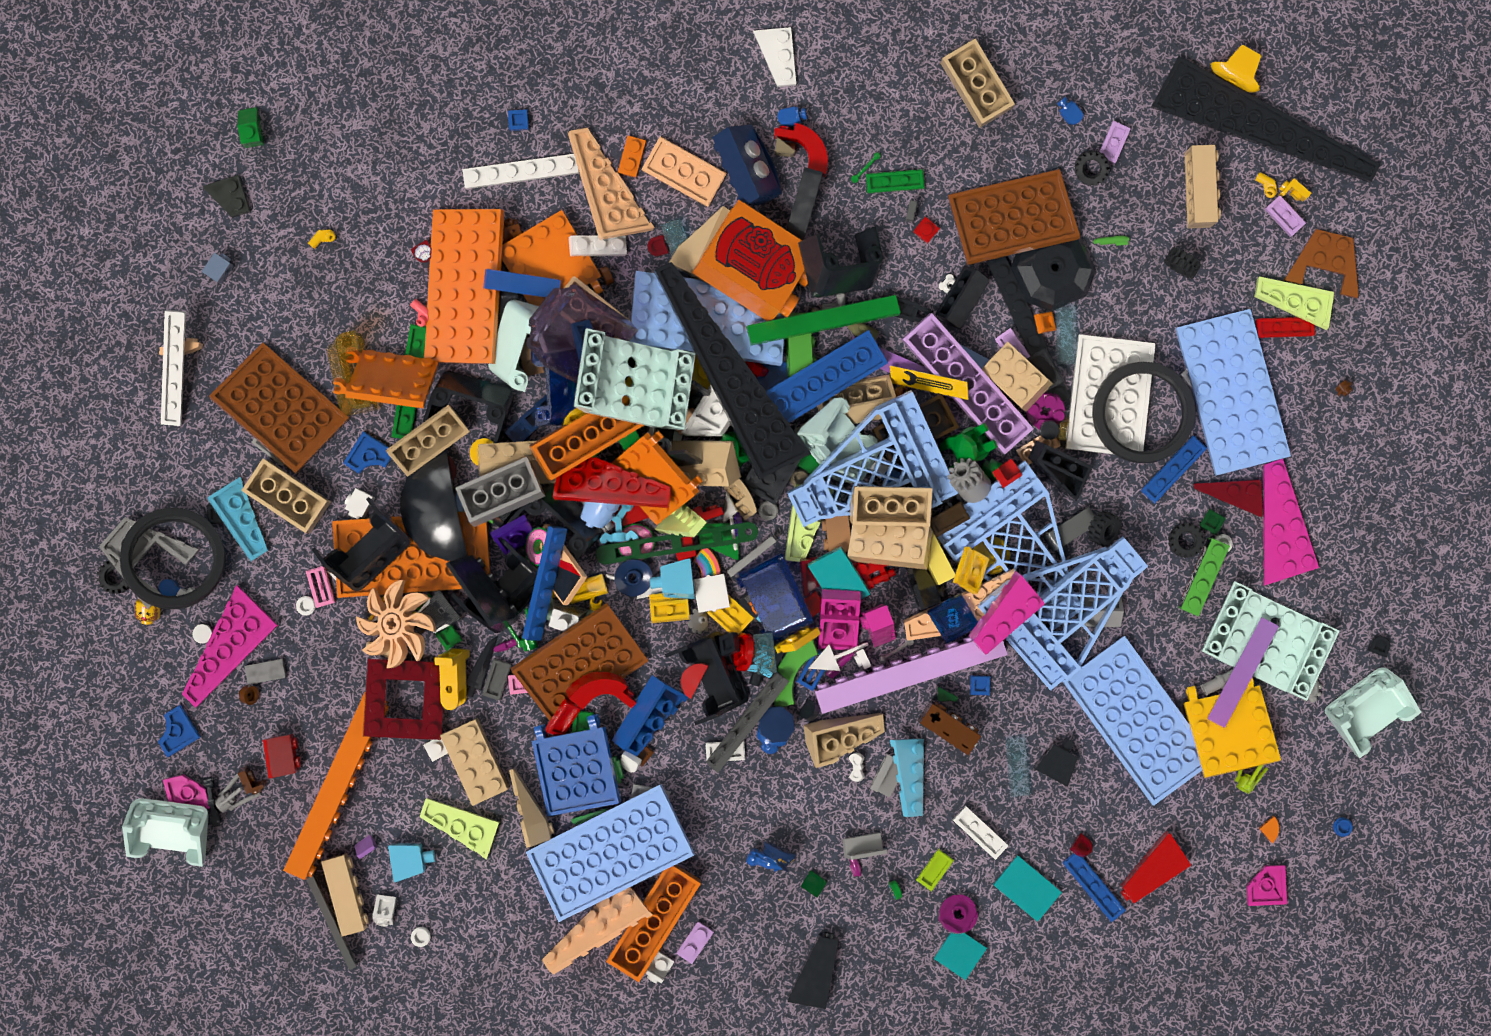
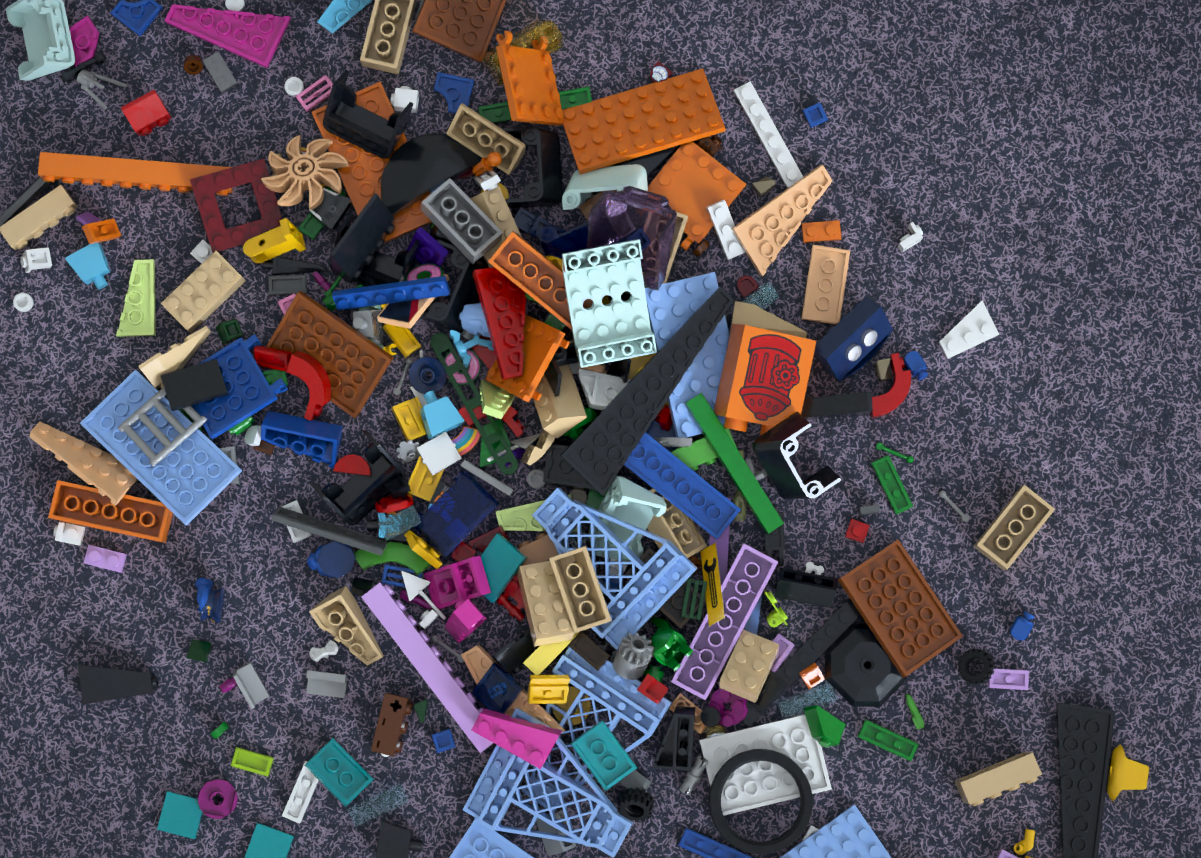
camera: 75 degrees right, 5 degrees down
(247, 779) = (113, 92): reddish brown bracket -> none
(380, 838) = (101, 231): none -> orange plate
(422, 312) = (603, 93): coral arm -> none
(450, 439) = (487, 163): none -> orange axle
(467, 453) = (487, 180): none -> white plate
(519, 283) = (662, 168): blue tile -> none
(520, 750) = (229, 331): none -> dark green slope
(562, 801) = (194, 385): none -> black tile
(568, 194) = (763, 186): none -> dark tan slope
(572, 861) = (169, 445): none -> light grey bar
(636, 611) = (397, 391): none -> light grey hinge
(671, 77) = (908, 240): none -> white bracket
(783, 368) = (668, 442): none -> light grey tile
(910, 761) = (345, 699): medium azure wing -> none
(941, 398) = (696, 582): none -> dark green tile
(950, 125) = (965, 517): none -> light grey hinge
(974, 792) = (339, 772): none -> teal tile
(980, 334) = (778, 615): none -> lime hinge
(1050, 541) = (603, 755): none -> teal tile
(1096, 328) = (824, 726): none -> green slope
(1098, 465) = (694, 775): none -> light grey pin
(1128, 275) = (888, 740): none -> green tile
(1182, 263) = (918, 786): black tyre -> none

